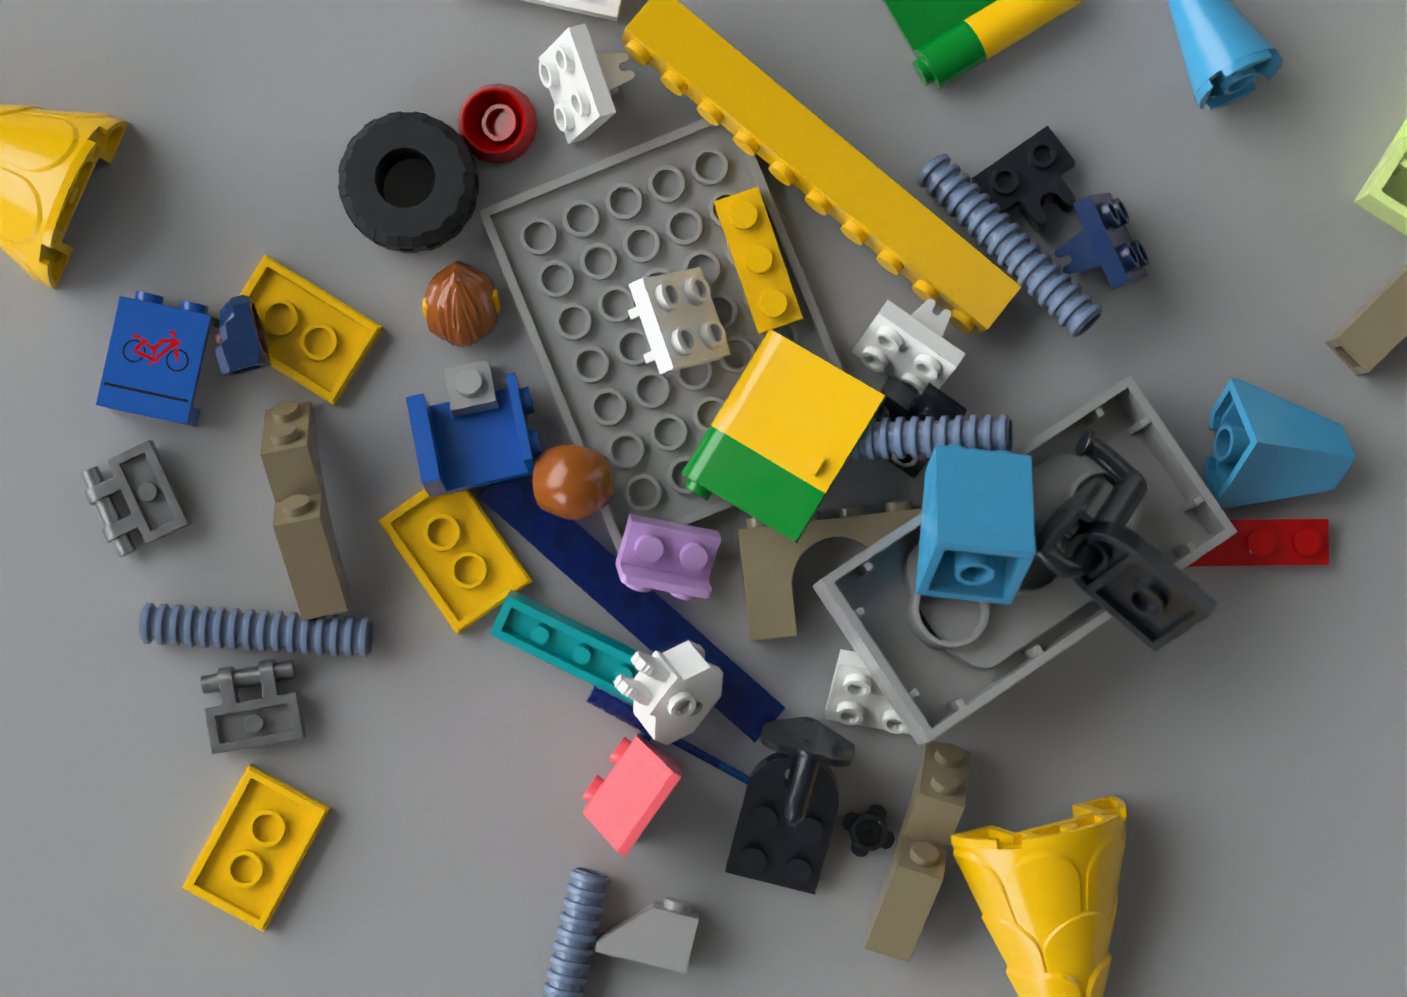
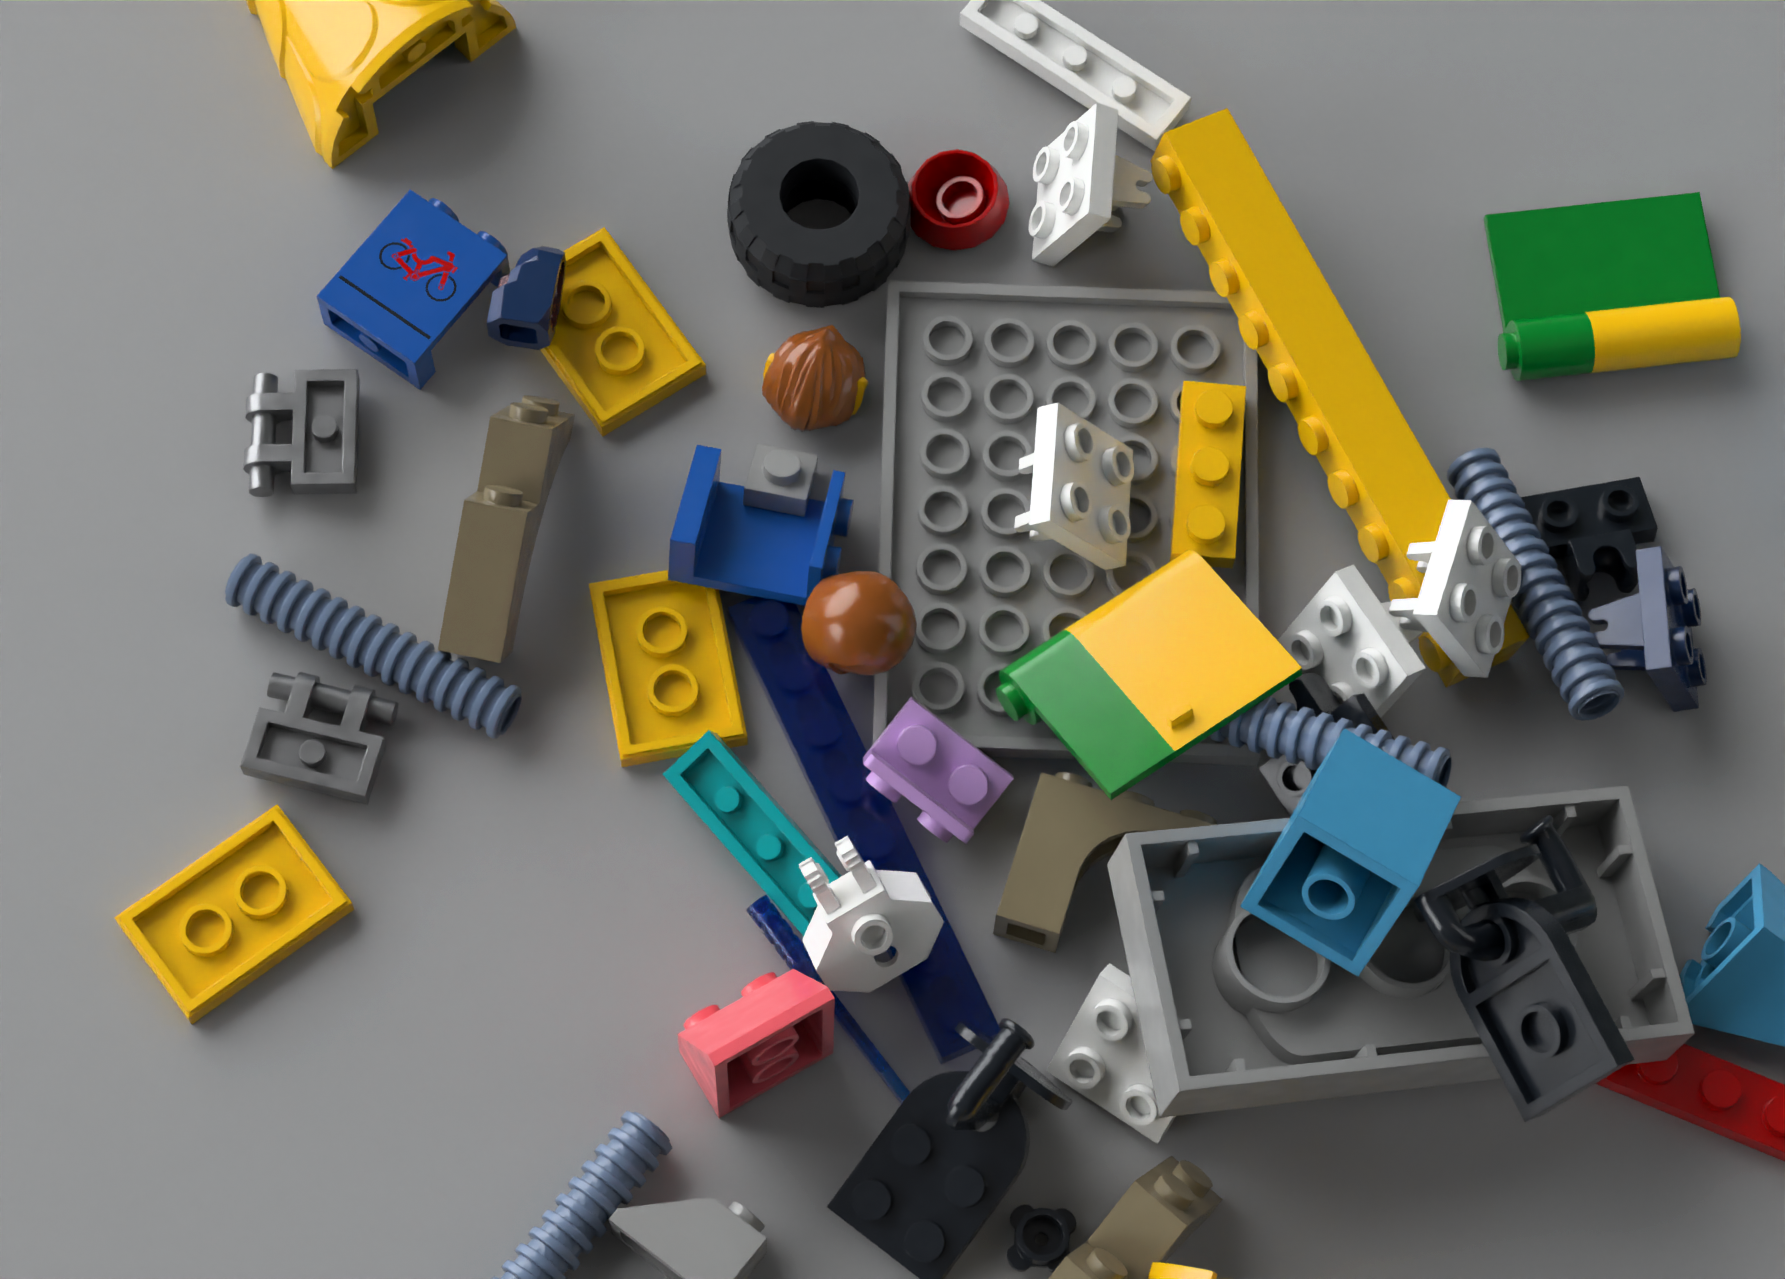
camera: 15 degrees right, 20 degrees down
(971, 287) = (1463, 589): none -> white plate

